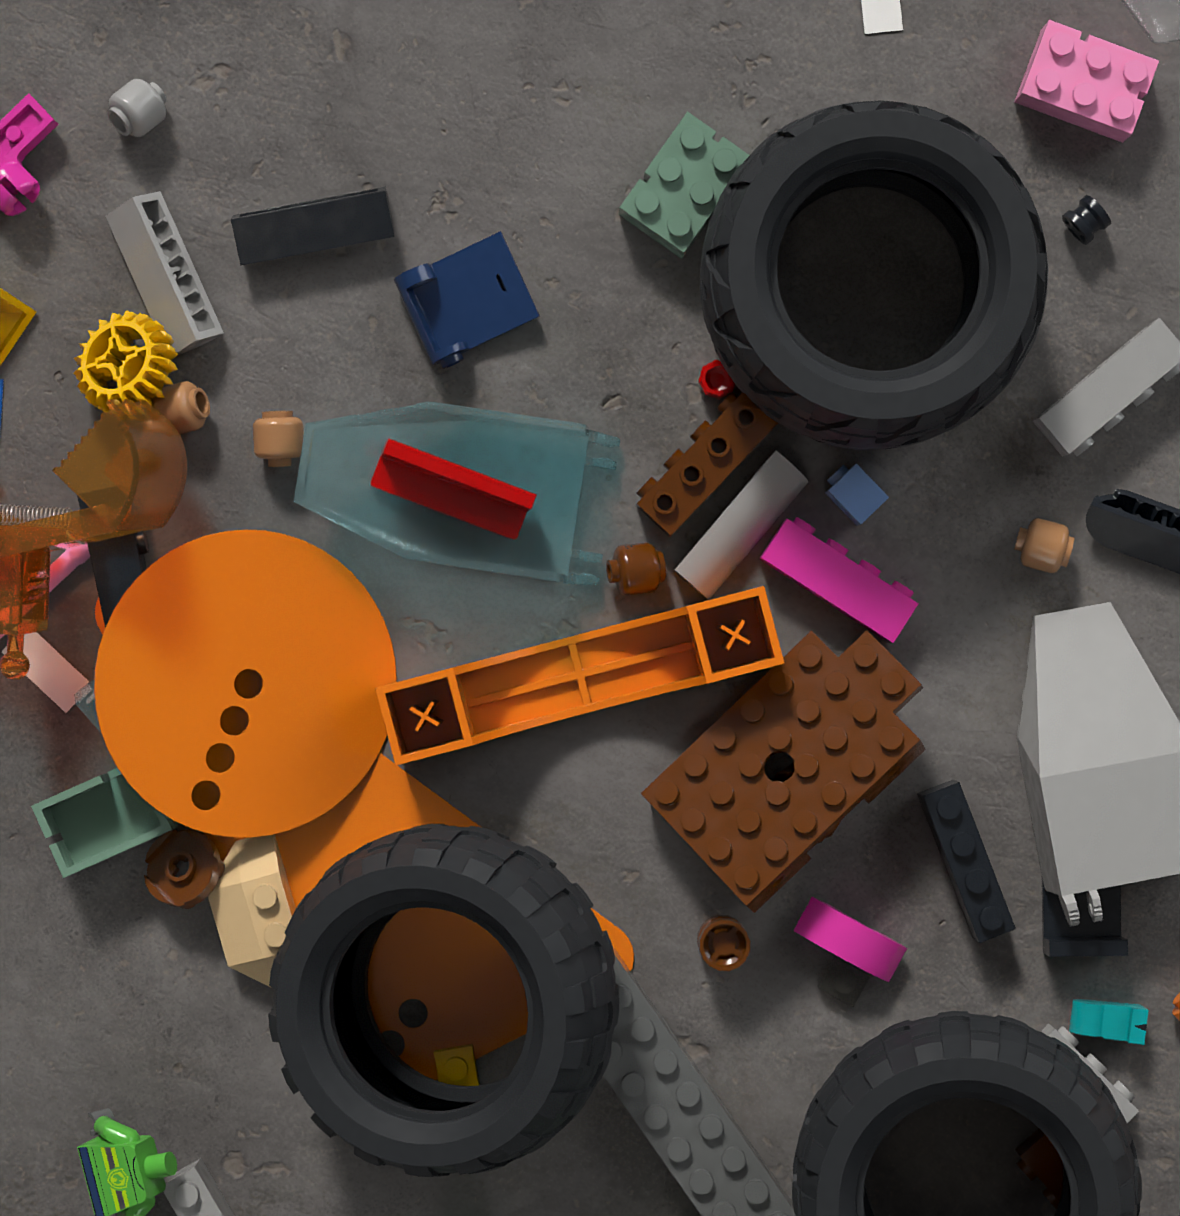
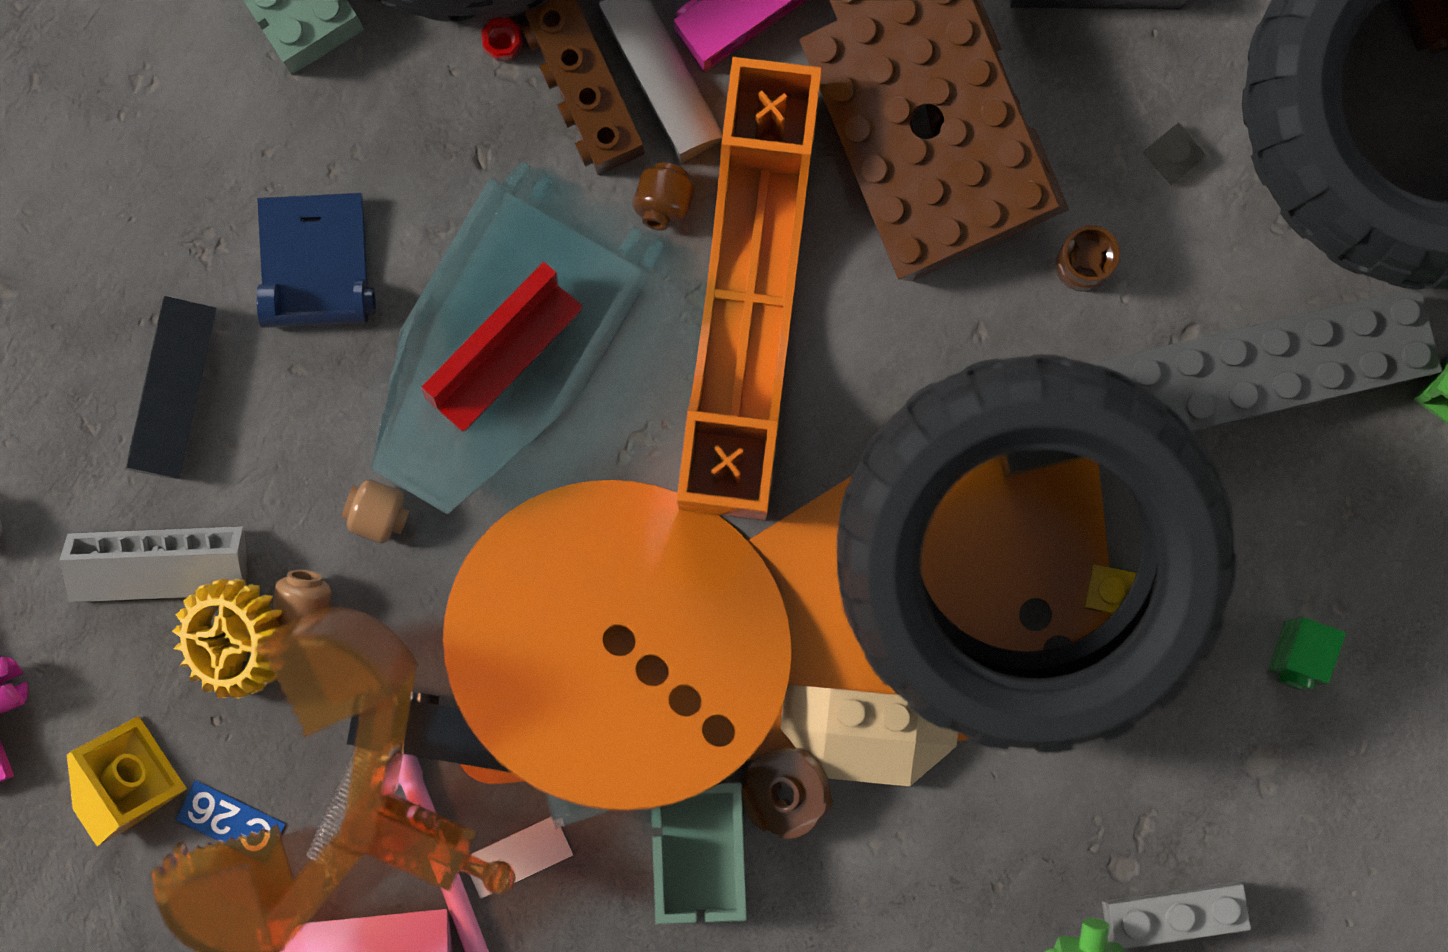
camera: 65 degrees left, 5 degrees down
(850, 939) = (1134, 128): dark pink brick -> none

